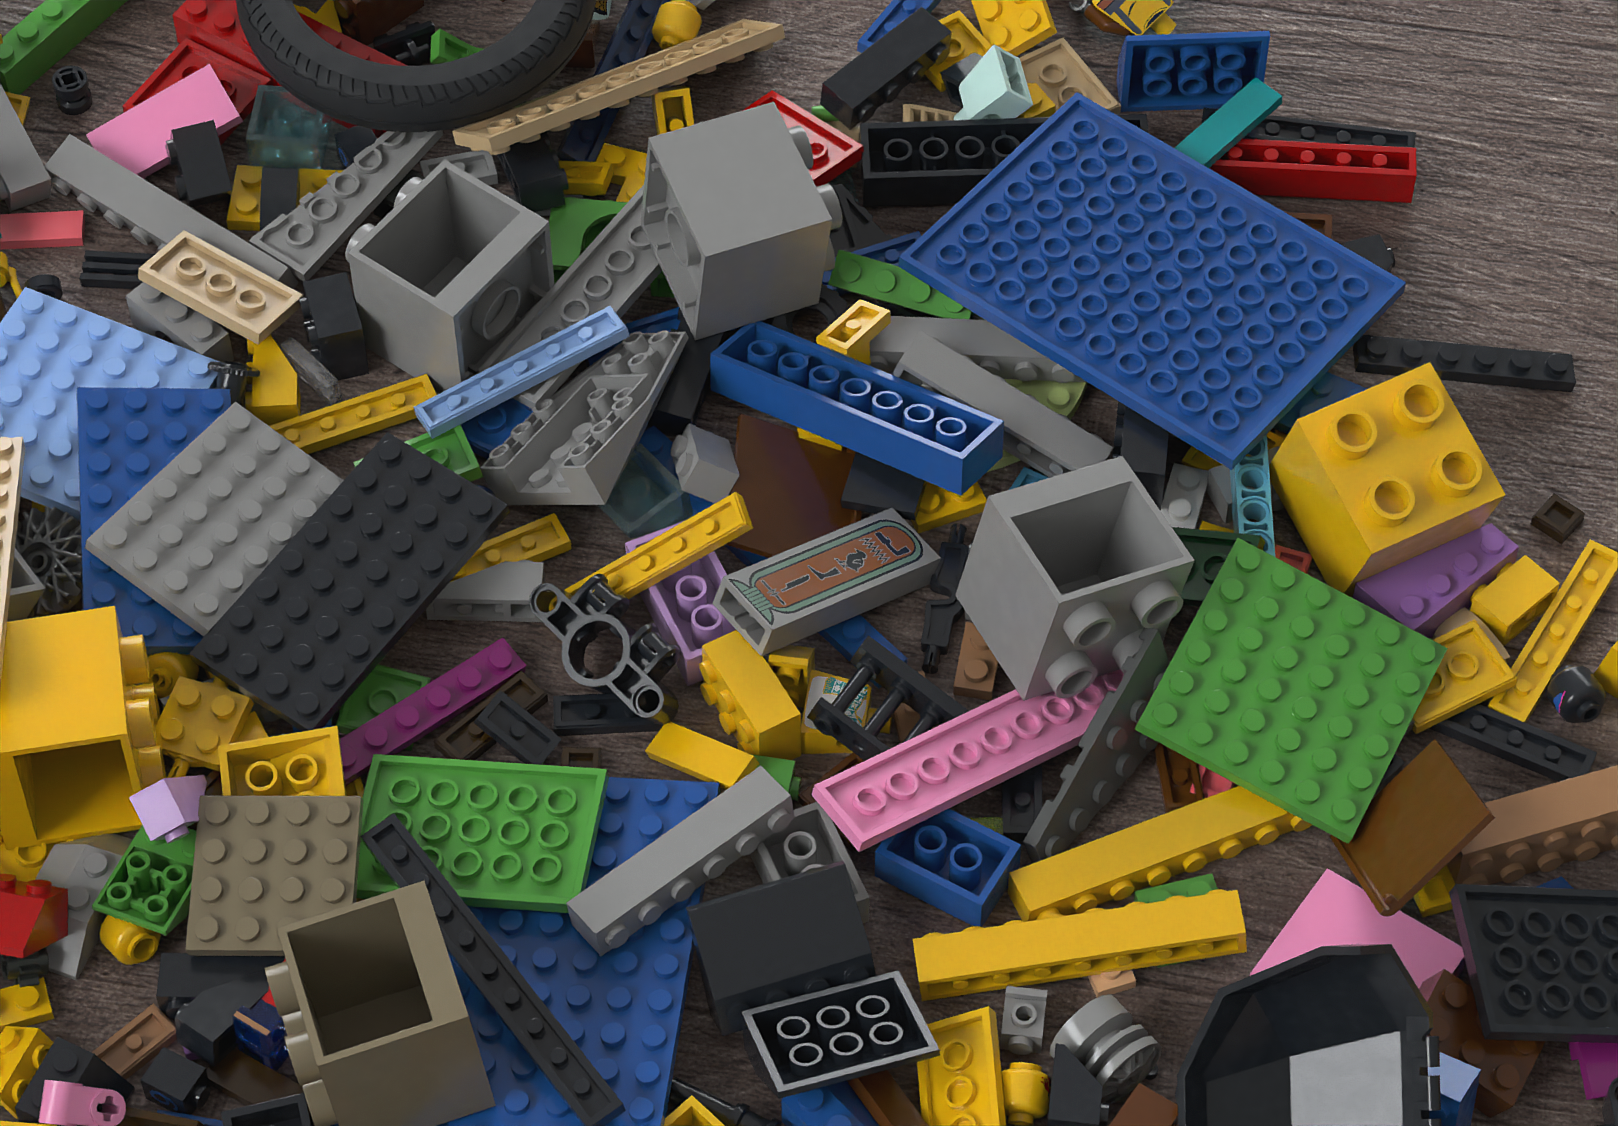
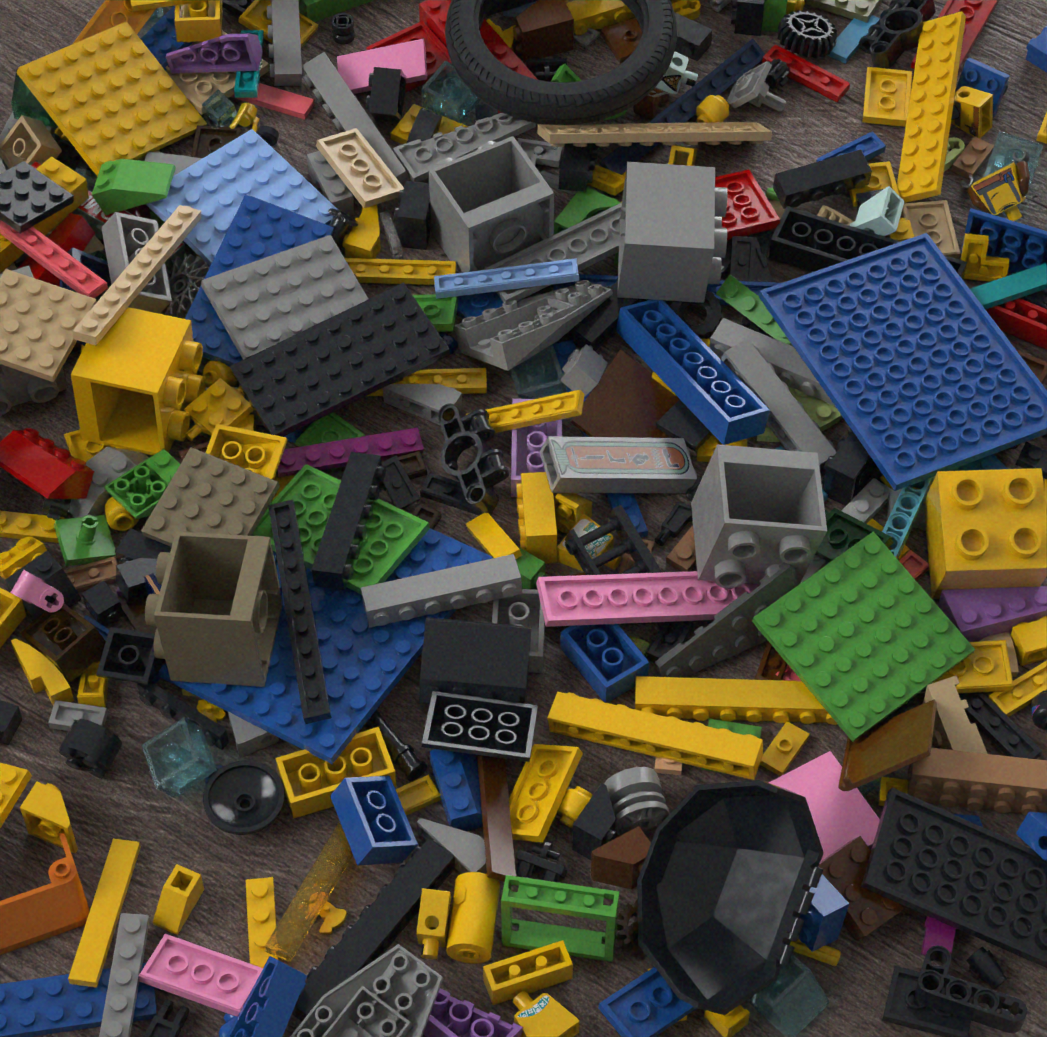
camera: 25 degrees right, 0 degrees up
(95, 998) = (84, 539): none -> bright green tile
(112, 262) = (308, 132): black tile -> none
(169, 806) = (170, 445): lavender slope -> none
(491, 813) = (348, 521): none -> black brick
(854, 330) = (710, 324): yellow slope -> none
(1023, 1020) = (607, 764): light grey brick -> none
(1163, 111) = (978, 264): none -> yellow plate
(1258, 889) = (784, 748): none -> yellow plate
(1488, 773) = (951, 723): none -> tan wedge

